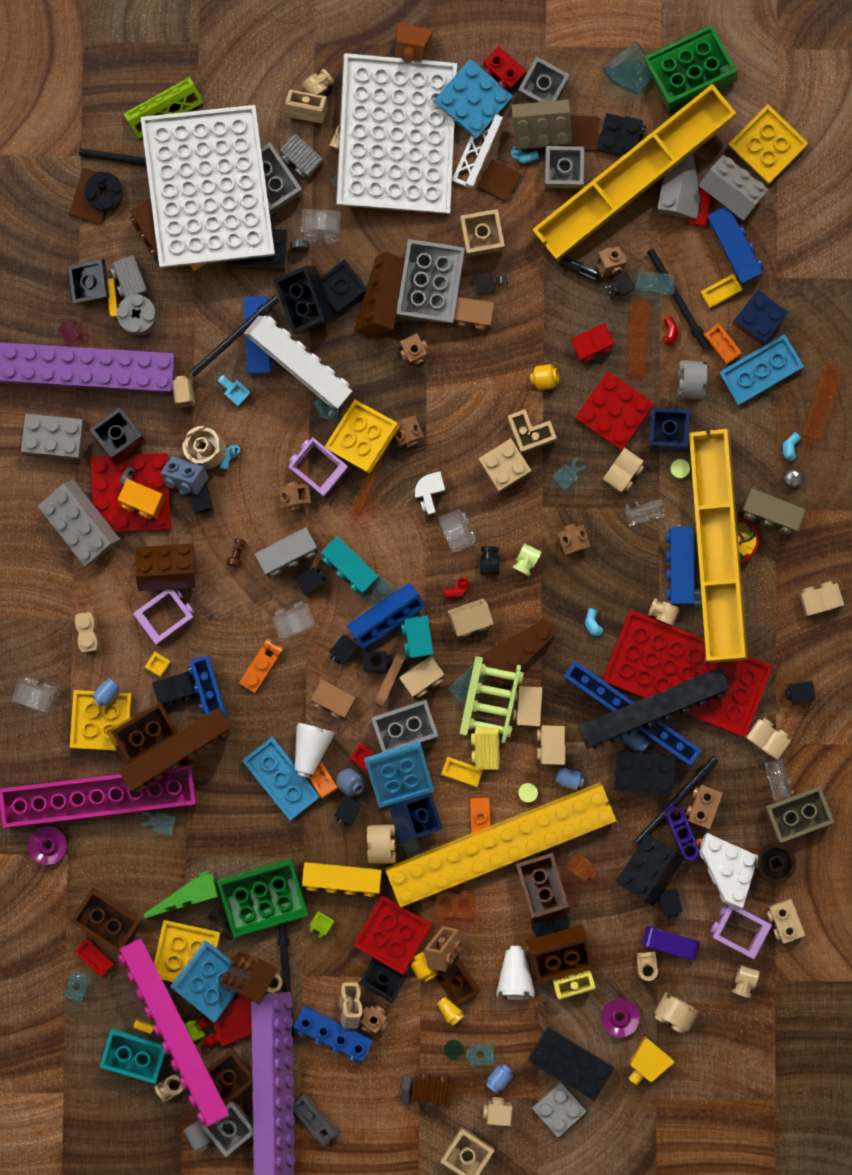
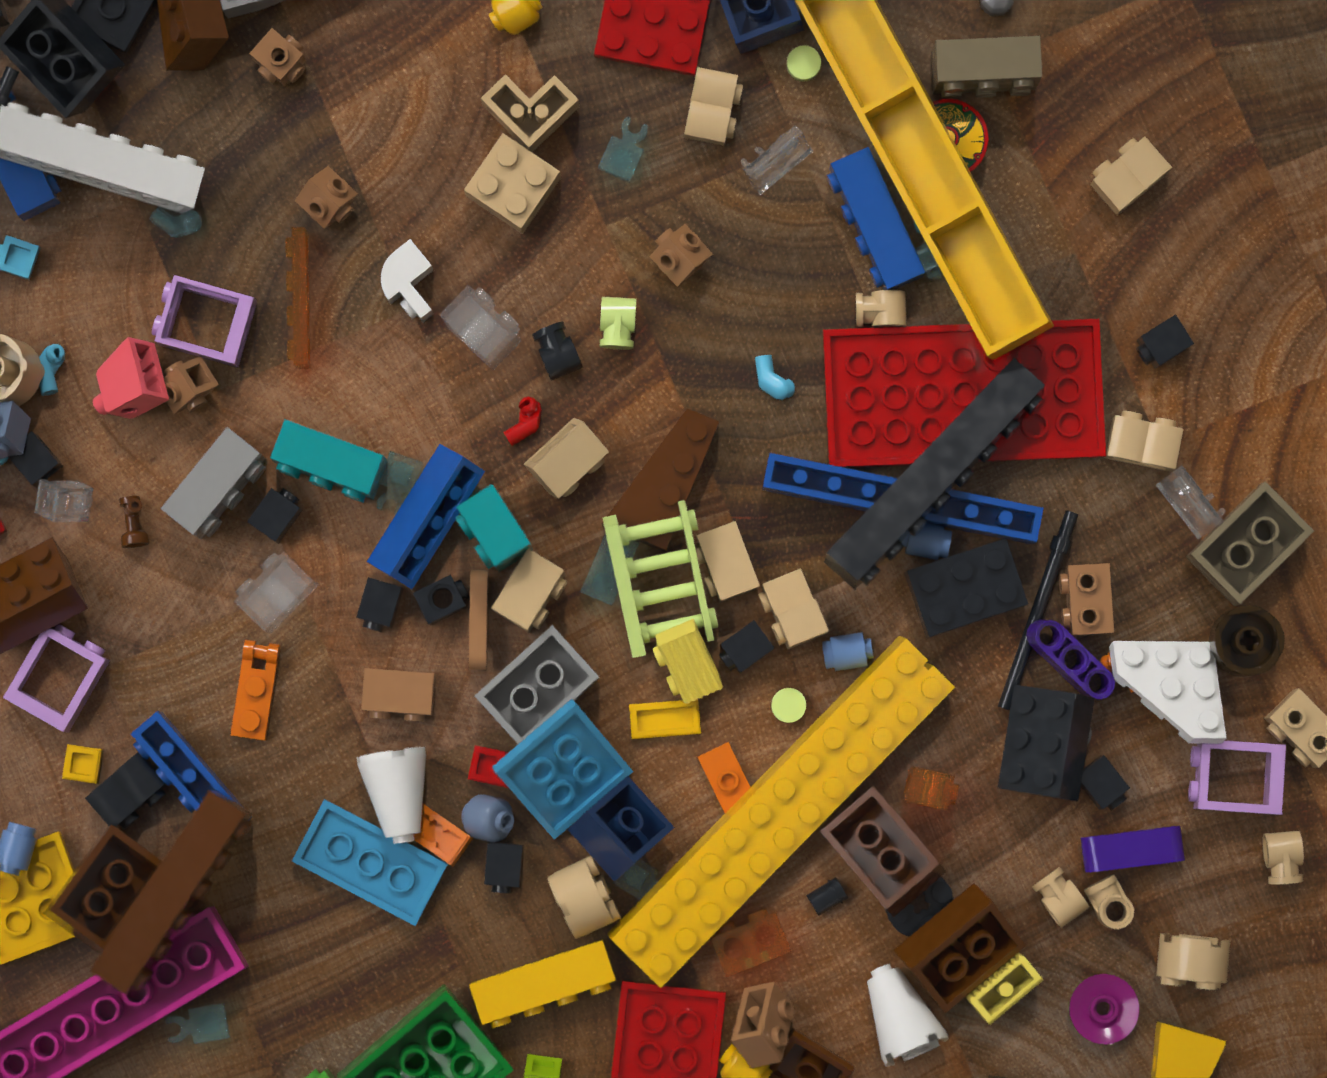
camera: 25 degrees left, 0 degrees up
(207, 527) = (64, 501): none -> clear brick
(267, 481) = (130, 380): none -> coral torso
(362, 436) = (256, 237): yellow plate -> none
(504, 898) = (827, 896): none -> black piece
(518, 753) = (745, 647): none -> black brick
(623, 951) = (1060, 897): none -> tan piece

